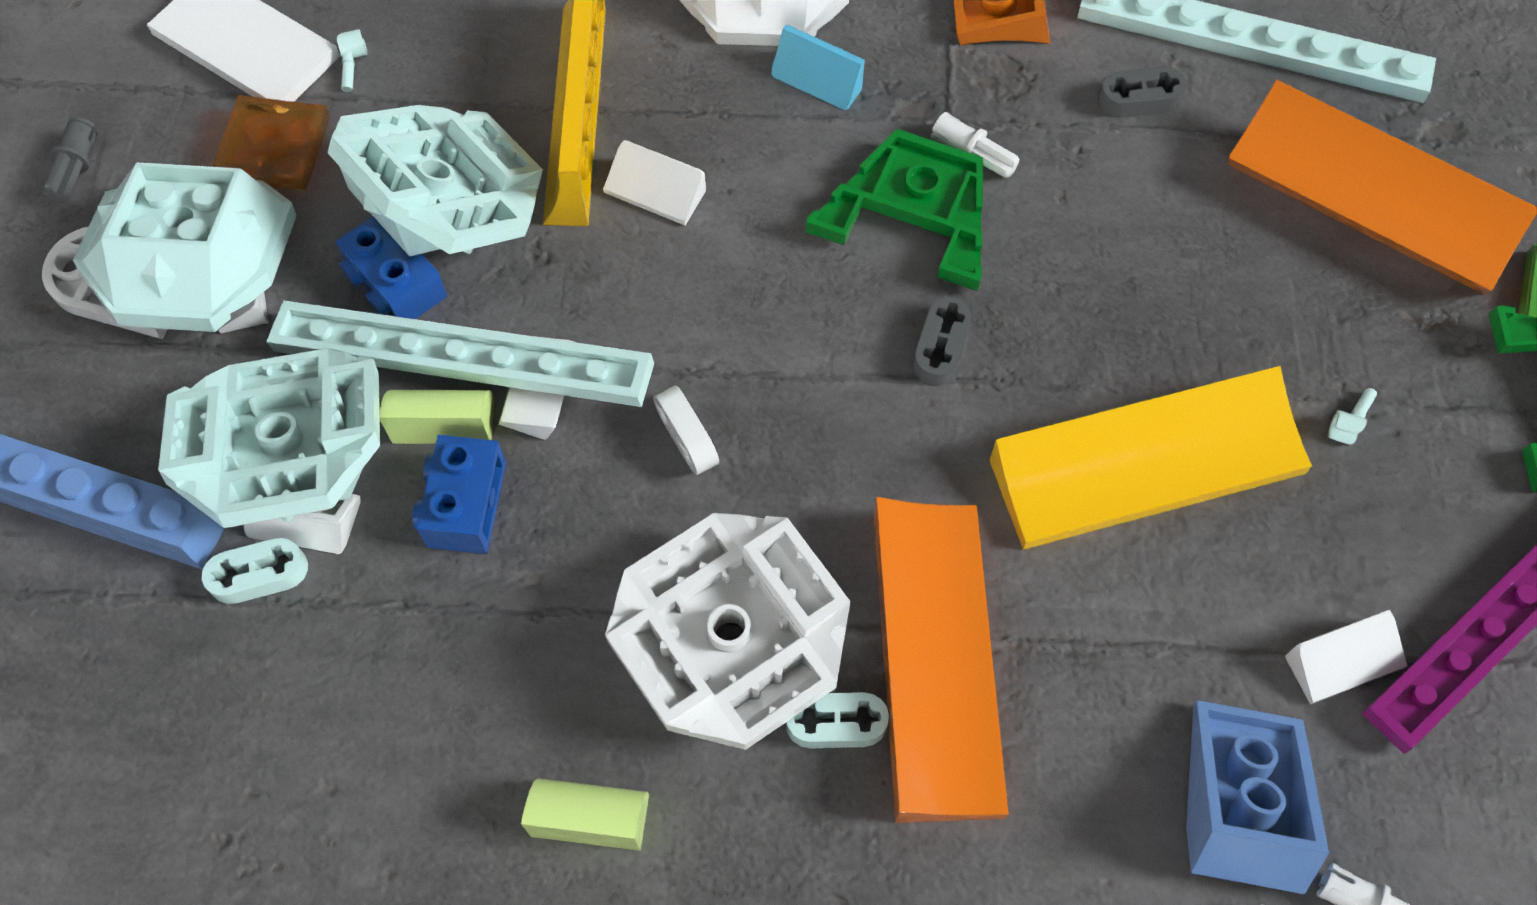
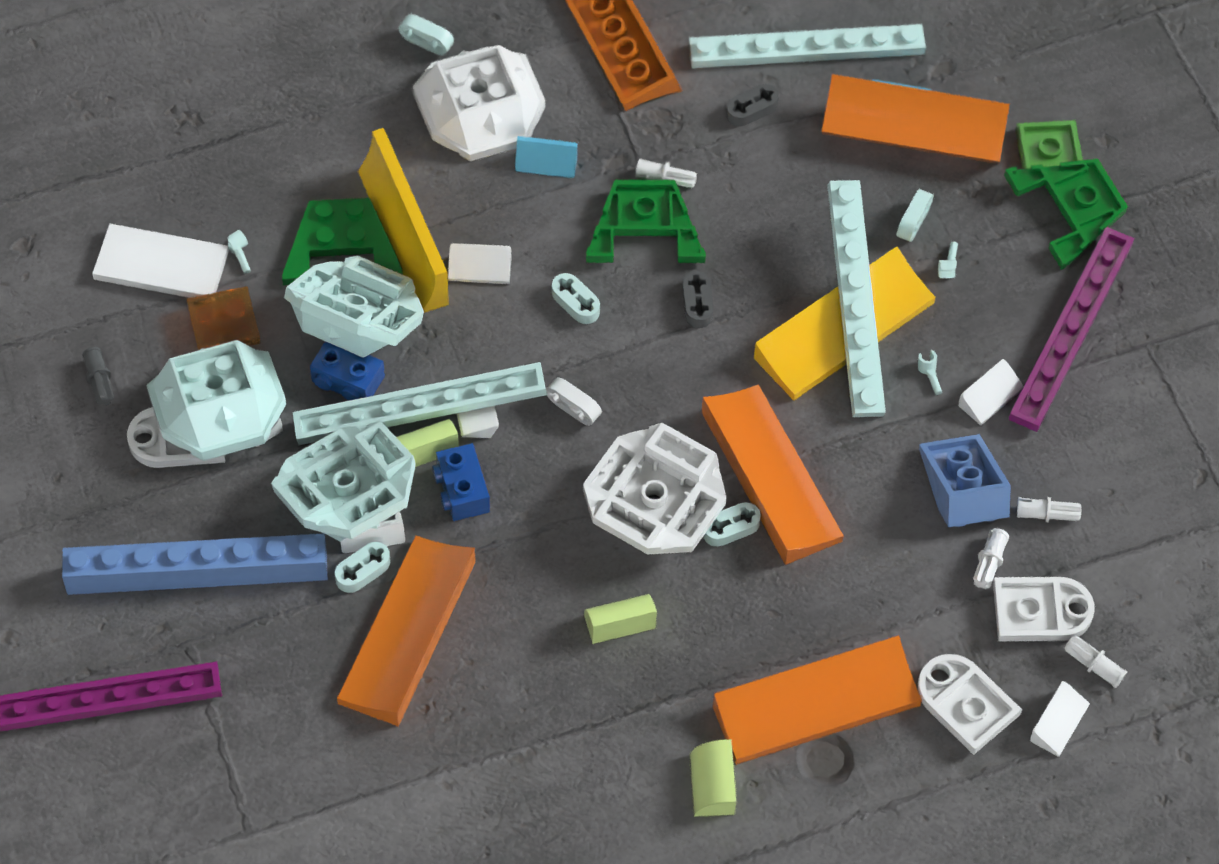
camera: 25 degrees left, 5 degrees down
(258, 703) = (407, 629): none -> orange arch
(496, 75) = (338, 229): none -> green wing
(774, 275) = (571, 301): none -> light aqua beam
(1182, 430) = (856, 299): none -> light aqua plate
(1259, 579) = (929, 368): none -> light aqua hand
(1325, 328) = (915, 215): none -> light aqua beam

